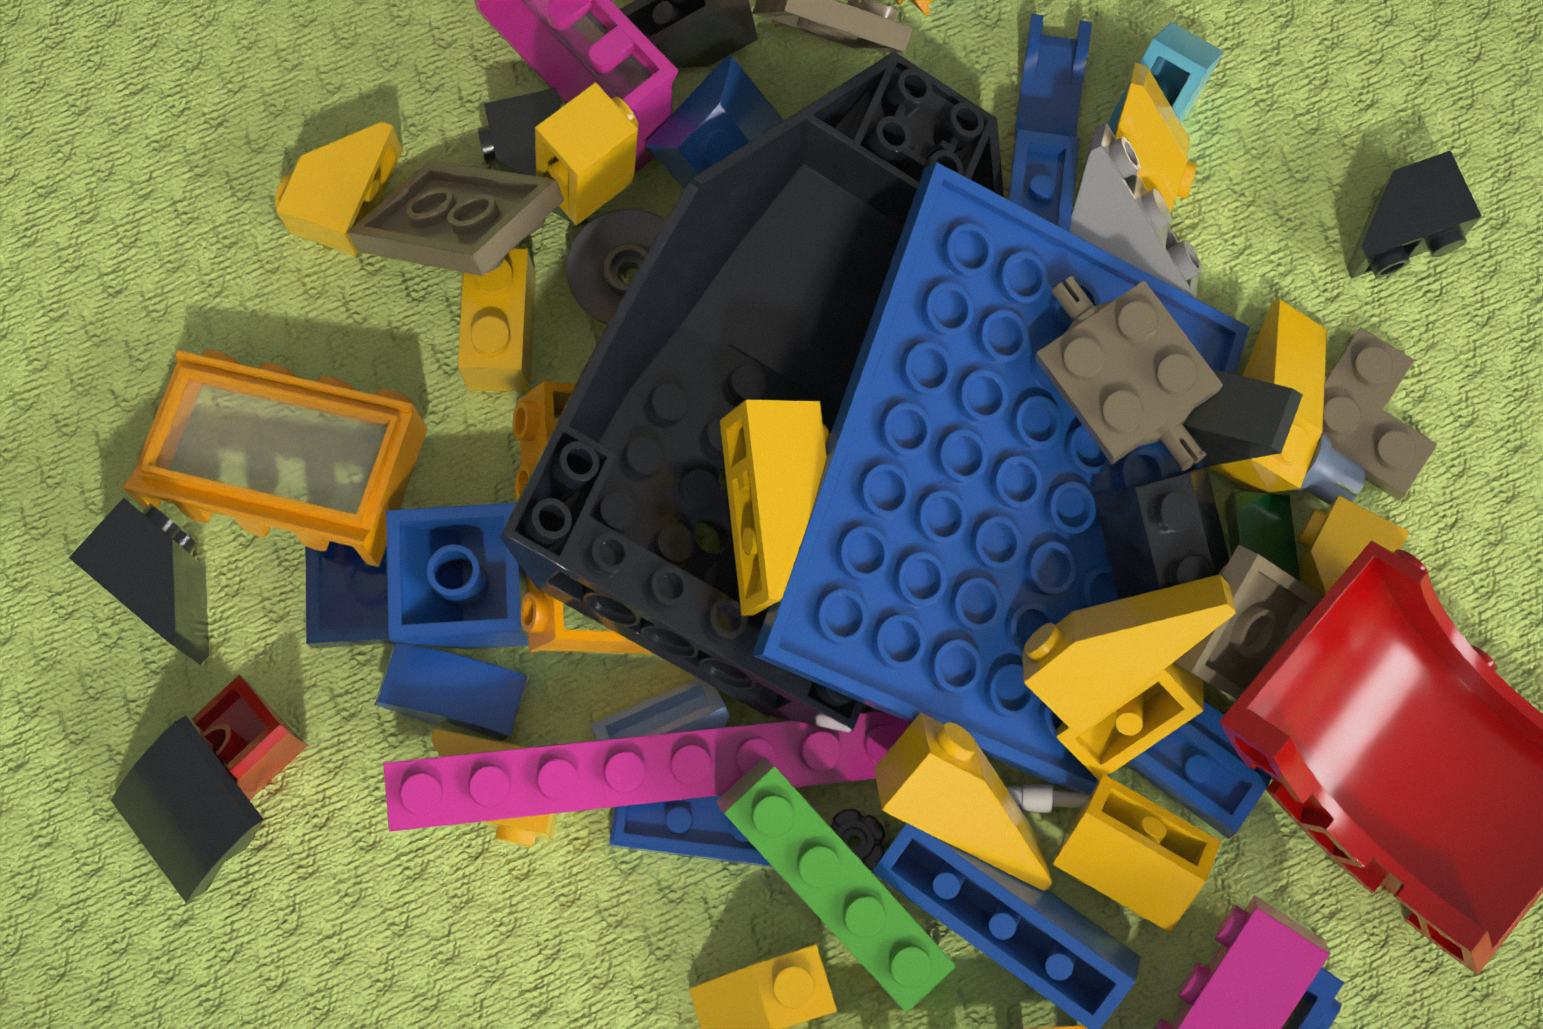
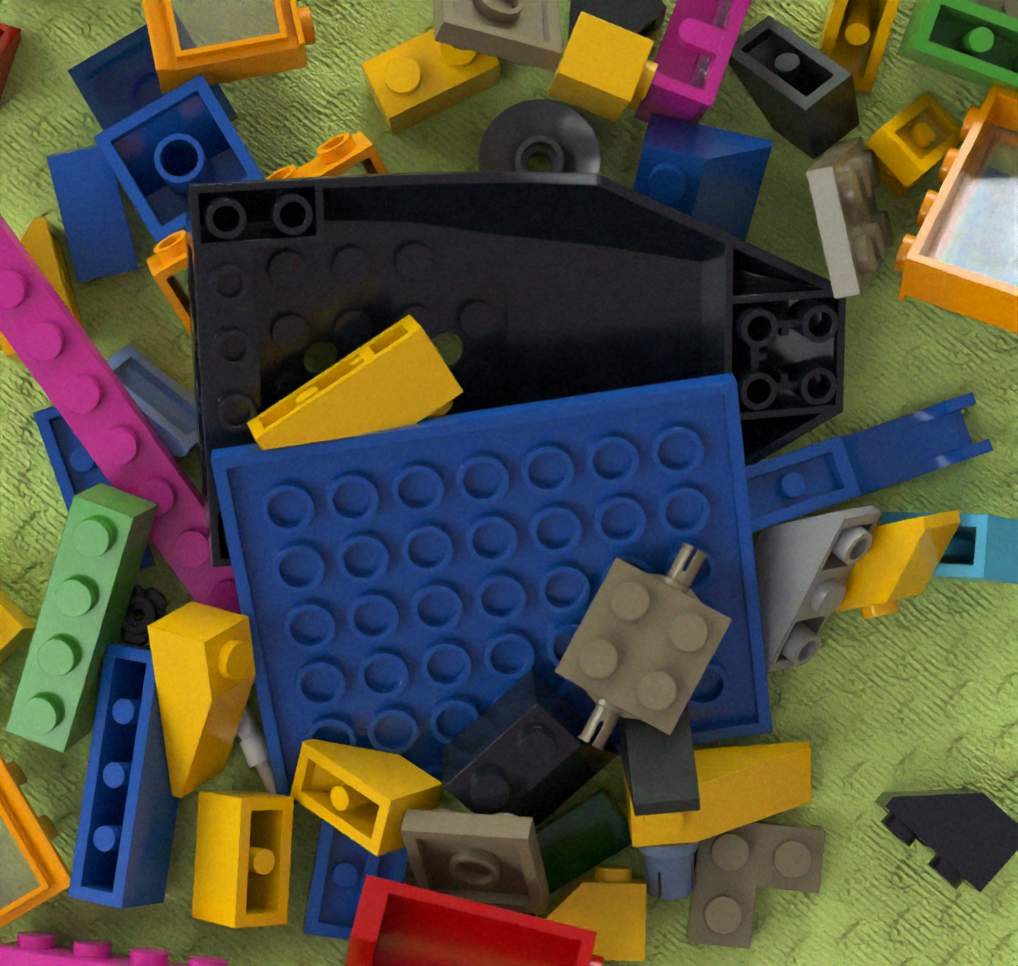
camera: 60 degrees right, 10 degrees up
(1117, 647) = (392, 757): yellow slope -> none

